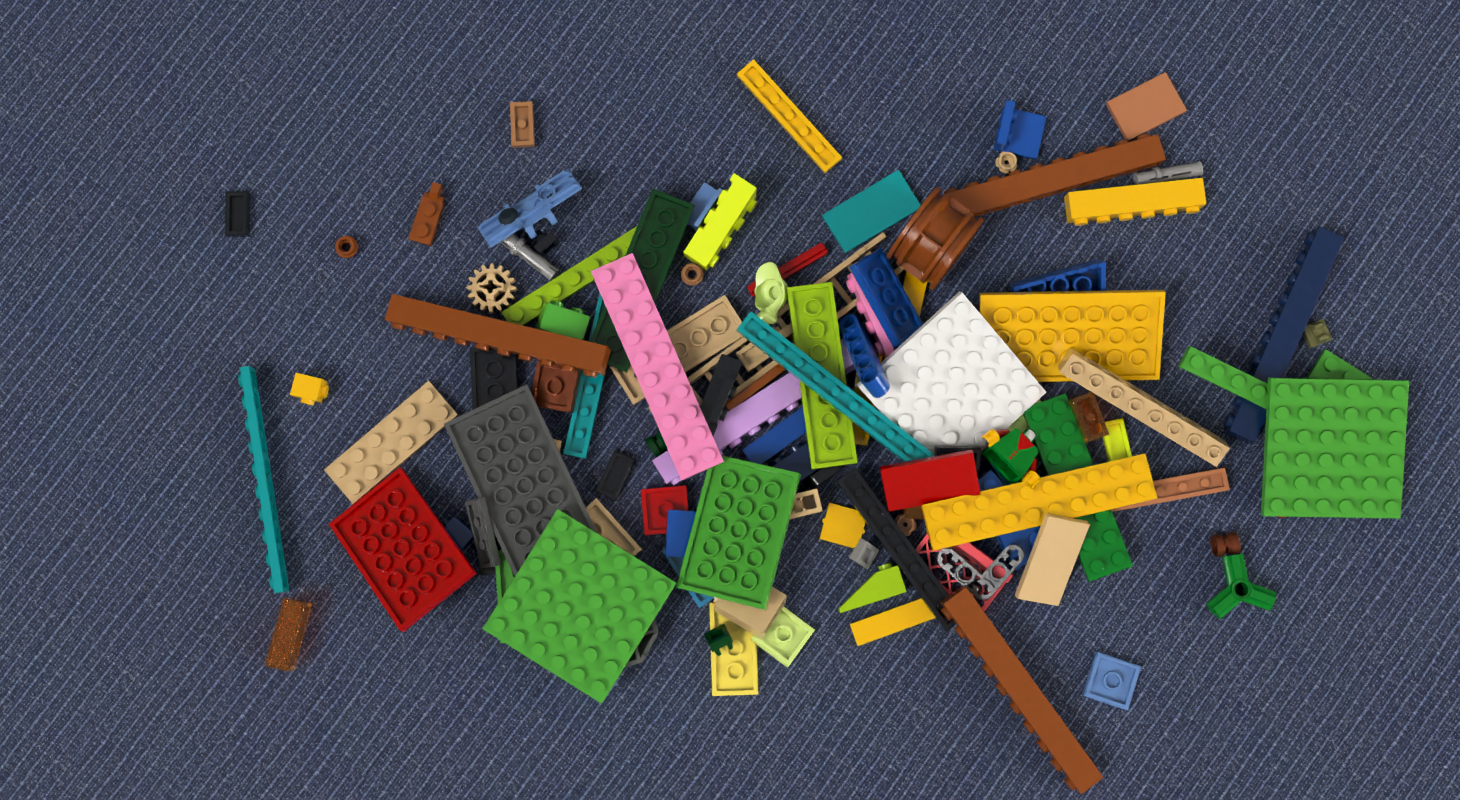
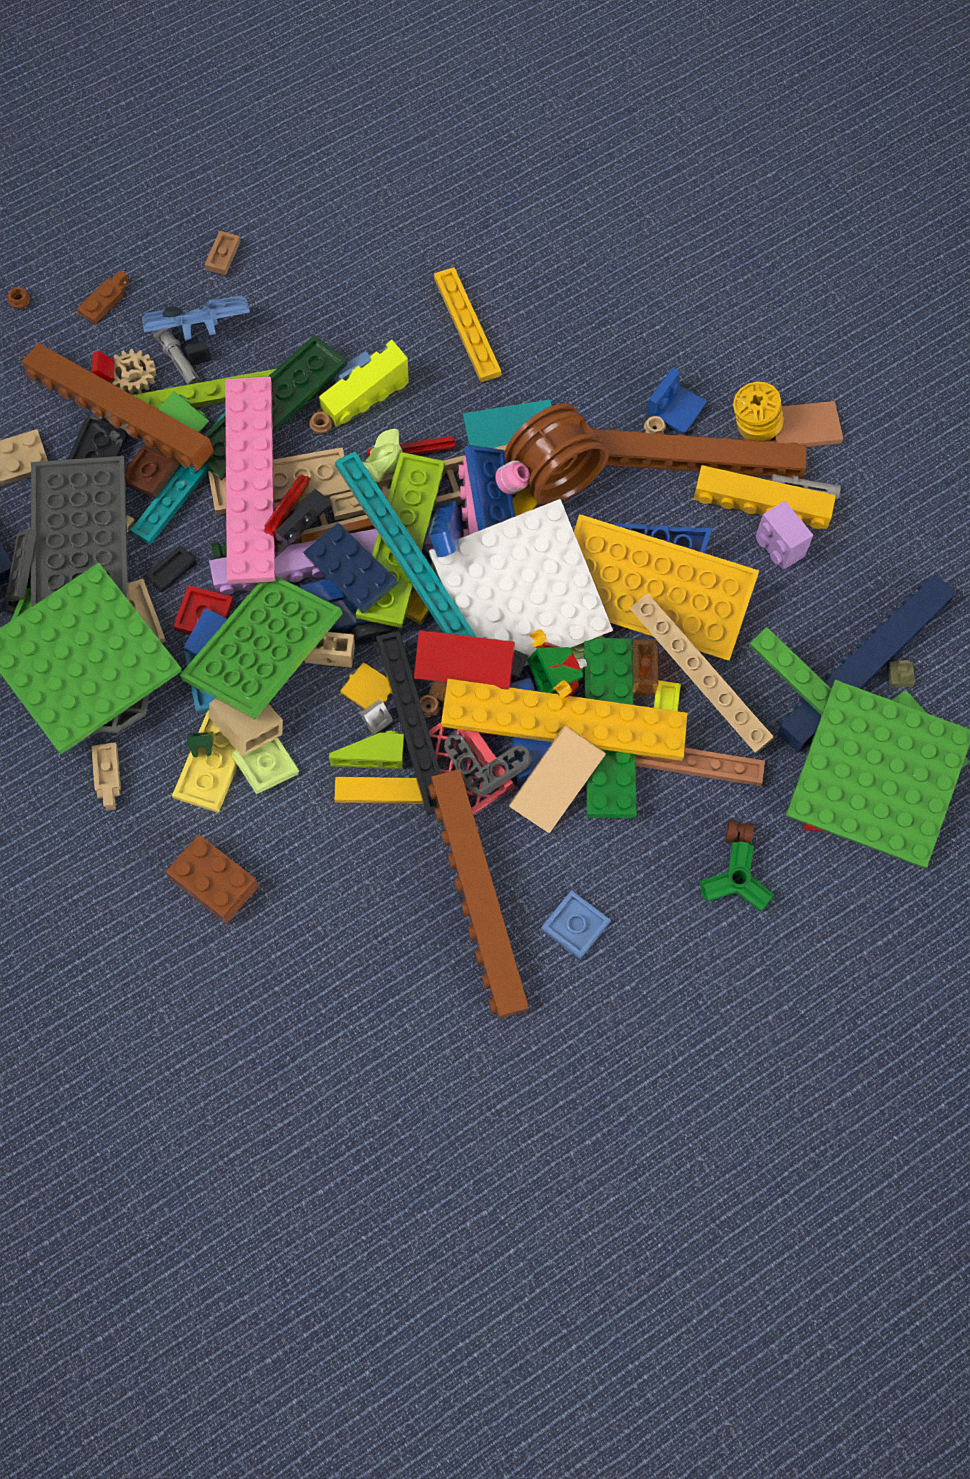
camera: 15 degrees right, 15 degrees down
(466, 297) = (103, 366): none -> red tile
(645, 697) = (106, 773): none -> tan hinge
(703, 381) = (286, 504): none -> red axle
(782, 762) = (212, 879): none -> dark orange brick
(788, 424) = (350, 568): none -> dark blue plate
(904, 278) = (512, 477): none -> bright pink head
(1100, 128) = (758, 411): none -> yellow wheel
(1169, 238) = (783, 535): none -> lavender brick

